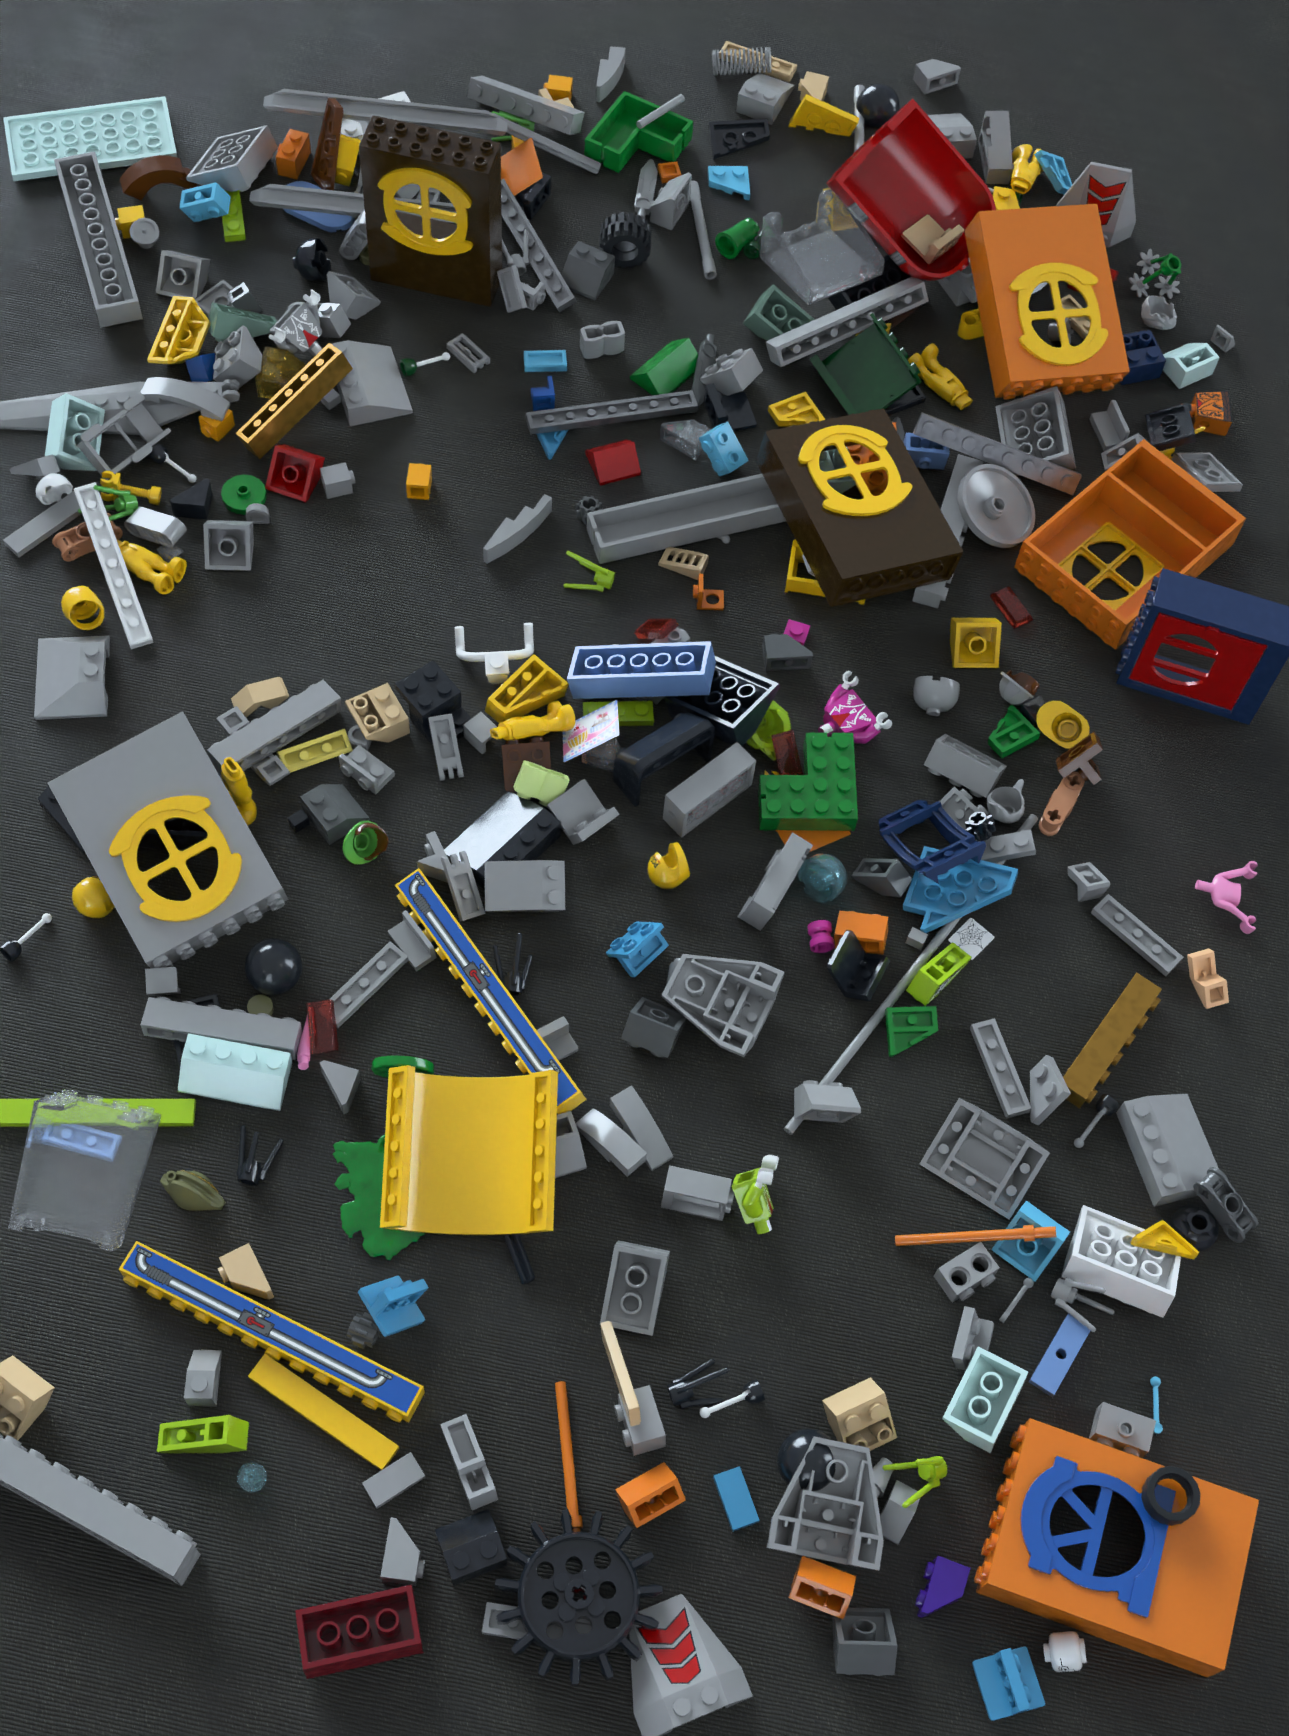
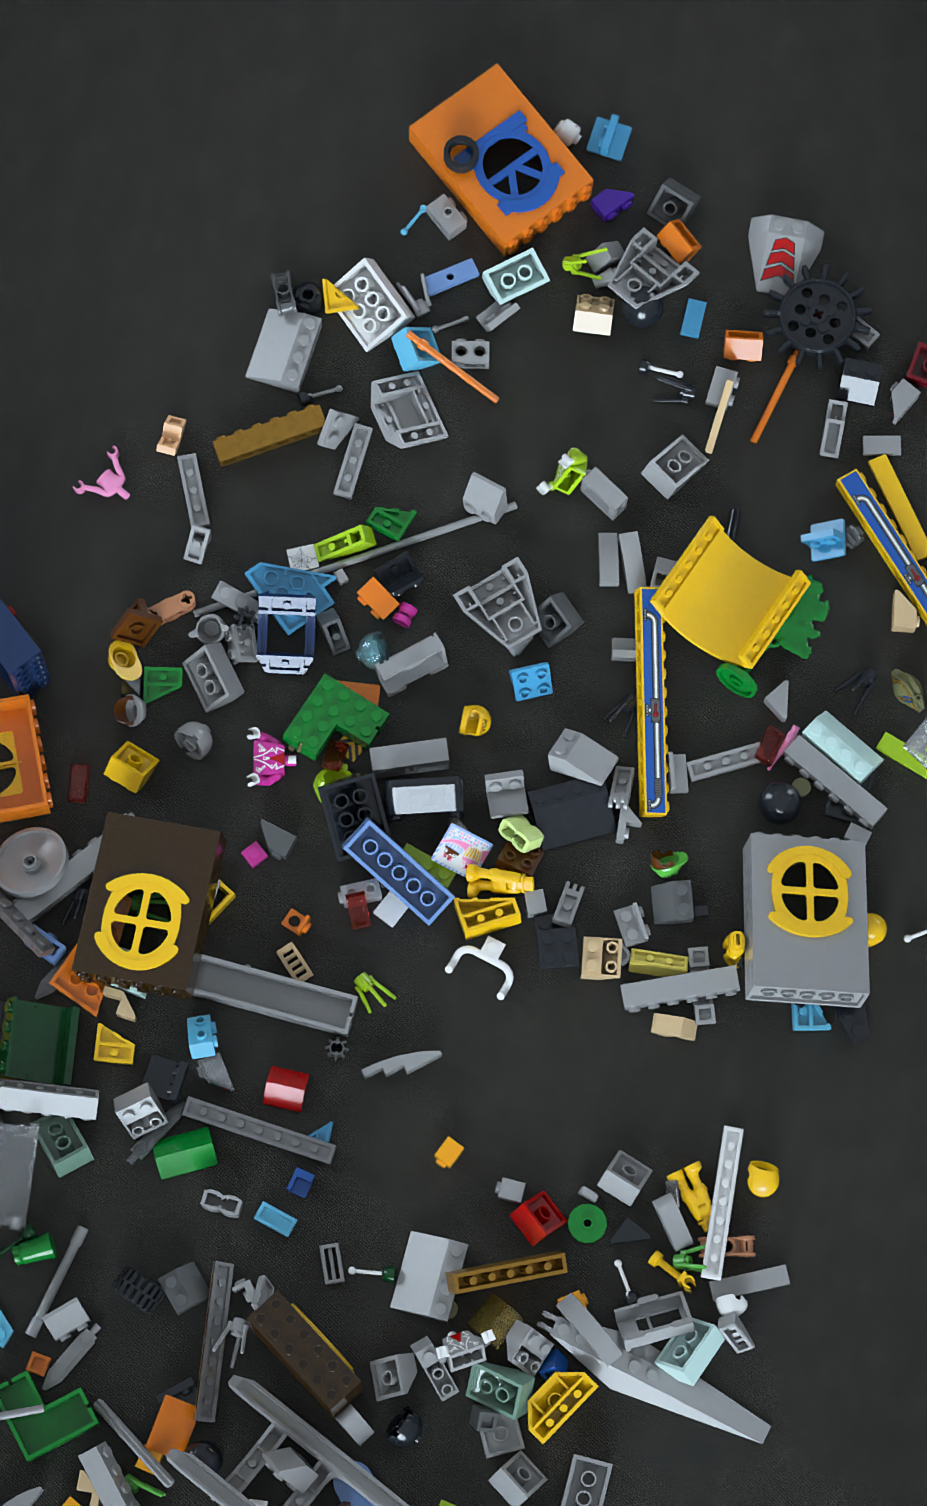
camera: 145 degrees left, 15 degrees up
(71, 677) = (797, 1129): light grey slope -> none

